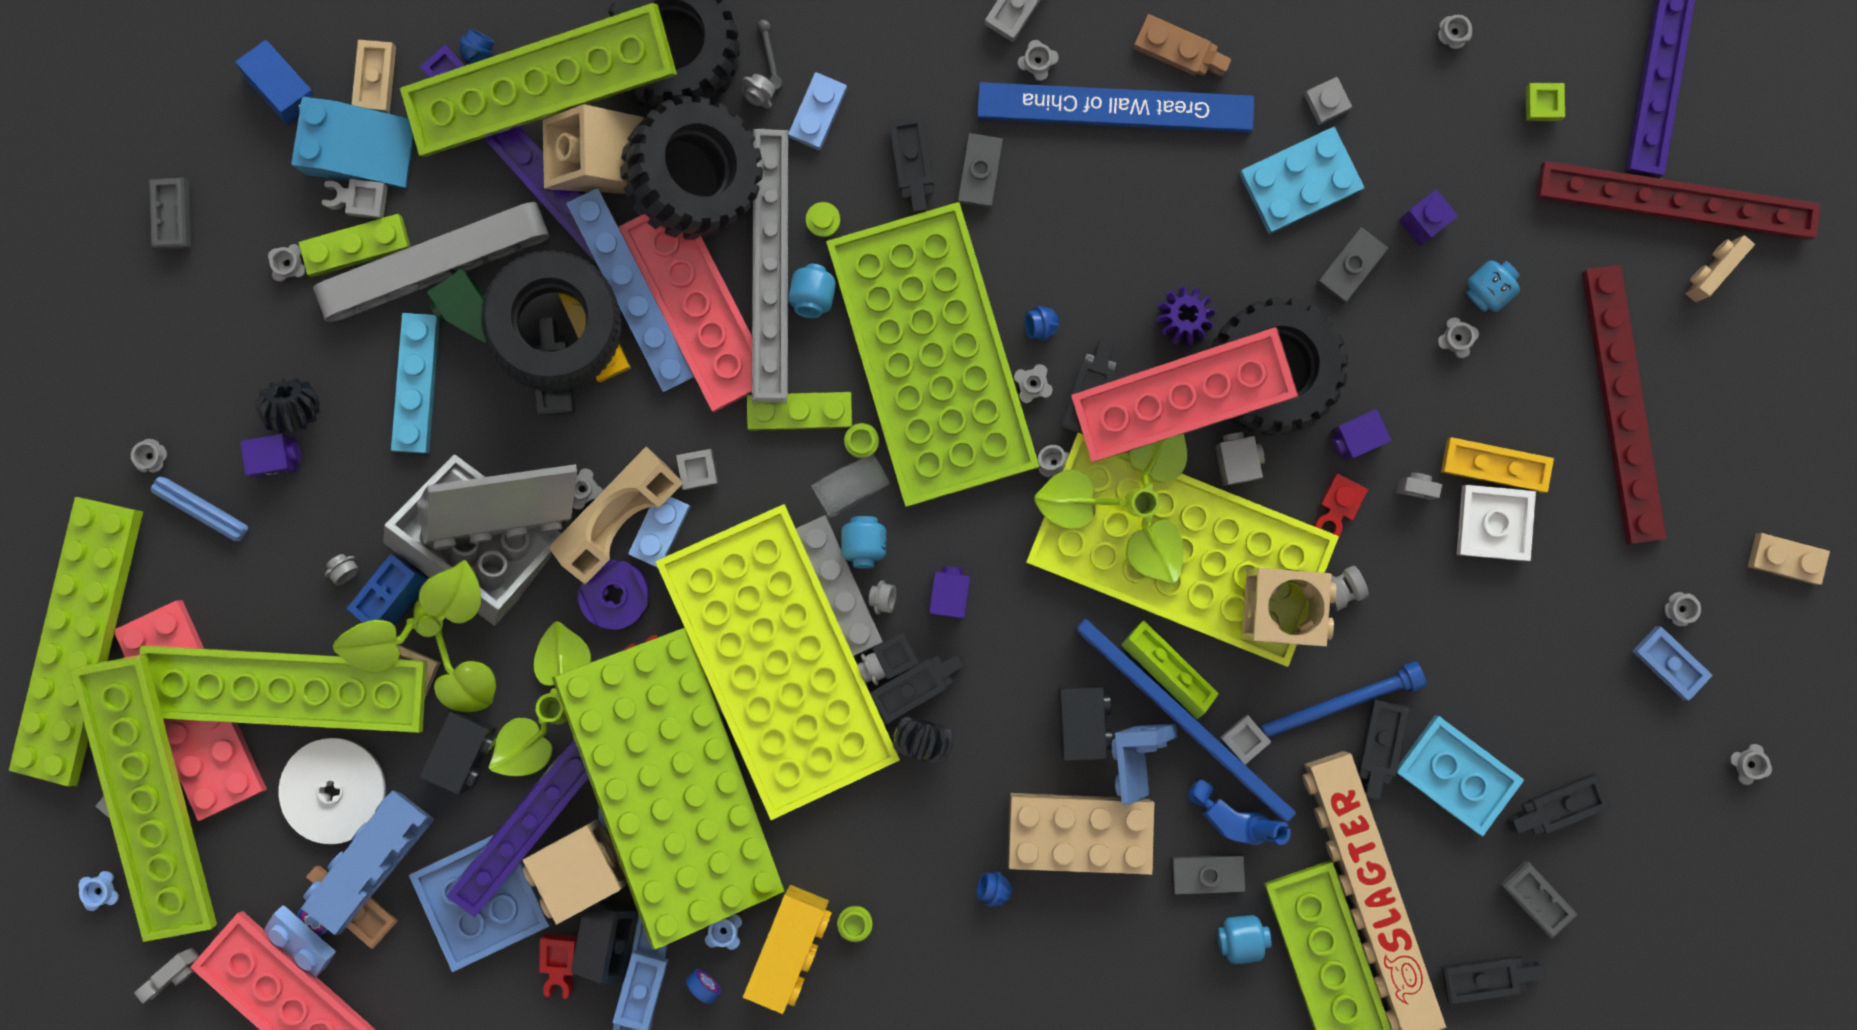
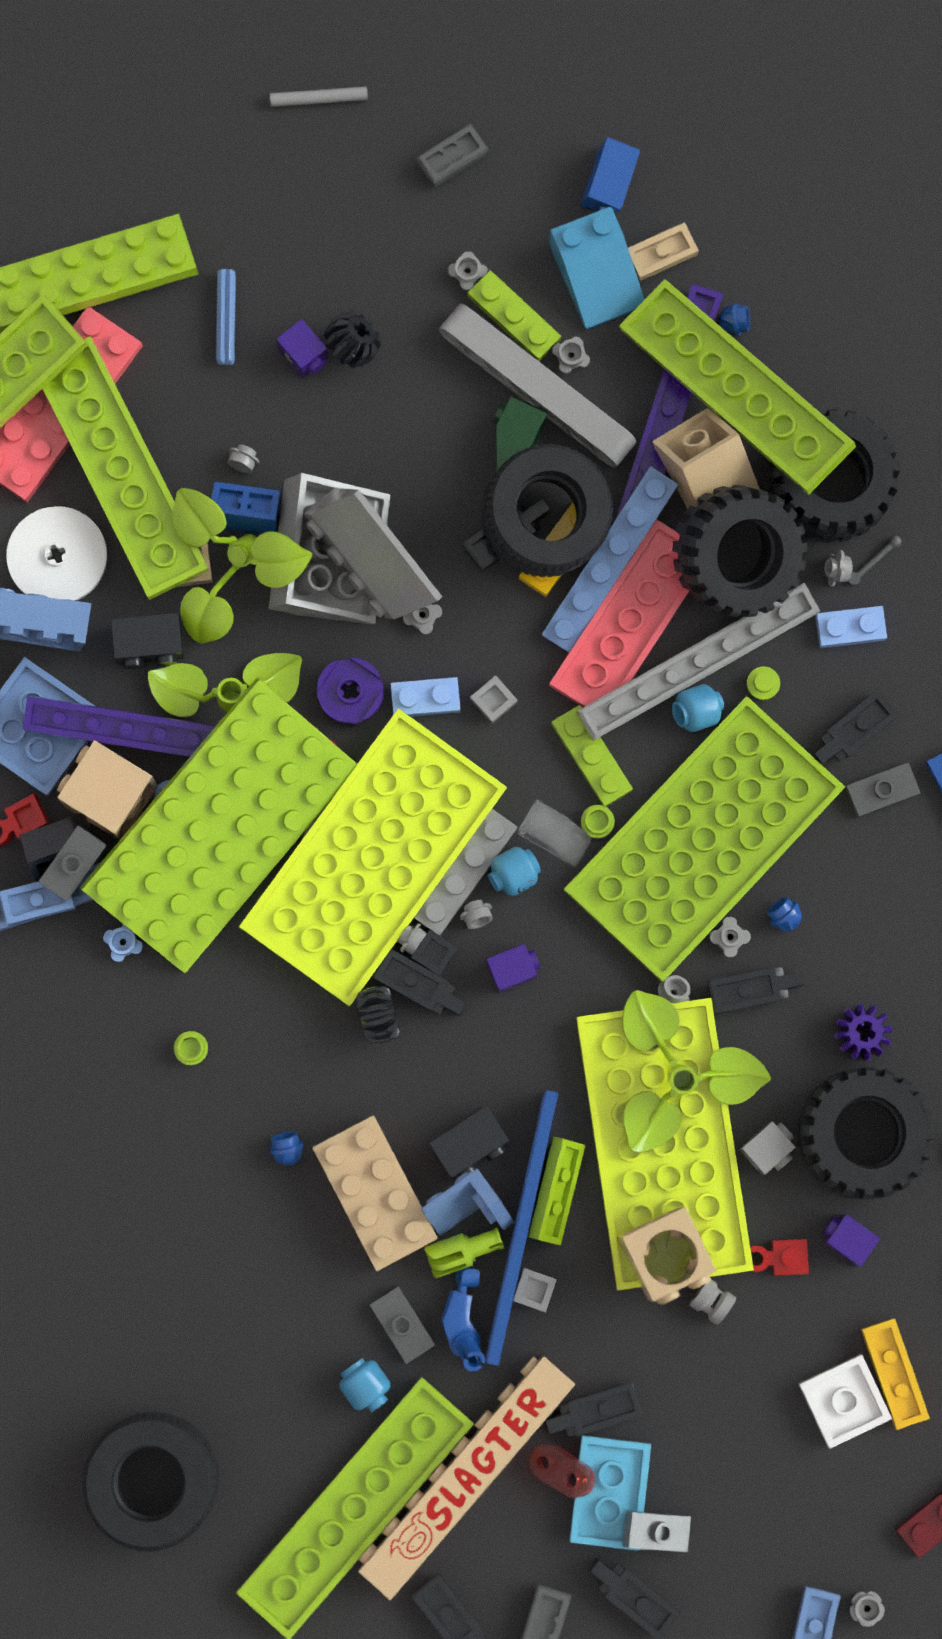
camera: 50 degrees right, 5 degrees down
(41, 304) = (318, 96): none -> light grey bar
(140, 452) = (245, 244): light grey plate -> none
(361, 198) = (555, 300): light grey plate -> none
(414, 207) = (573, 346): none -> light grey plate
(415, 383) = (429, 430): medium azure plate -> none
(587, 540) = (383, 643): tan arch -> none
(625, 942) = (72, 863): none -> dark grey plate
(703, 986) = (68, 951): blue tile -> none
(788, 950) = (140, 1002): yellow brick -> none
(1174, 786) = (460, 1251): none -> lime arm
(1185, 395) = (793, 1065): coral plate -> none
(1408, 678) = (667, 1401): blue piece -> none
(1414, 807) = (560, 1469): none -> clear red plate
(1419, 486) = (836, 1315): light grey plate -> none
(1516, 755) = (656, 1531): none -> plate

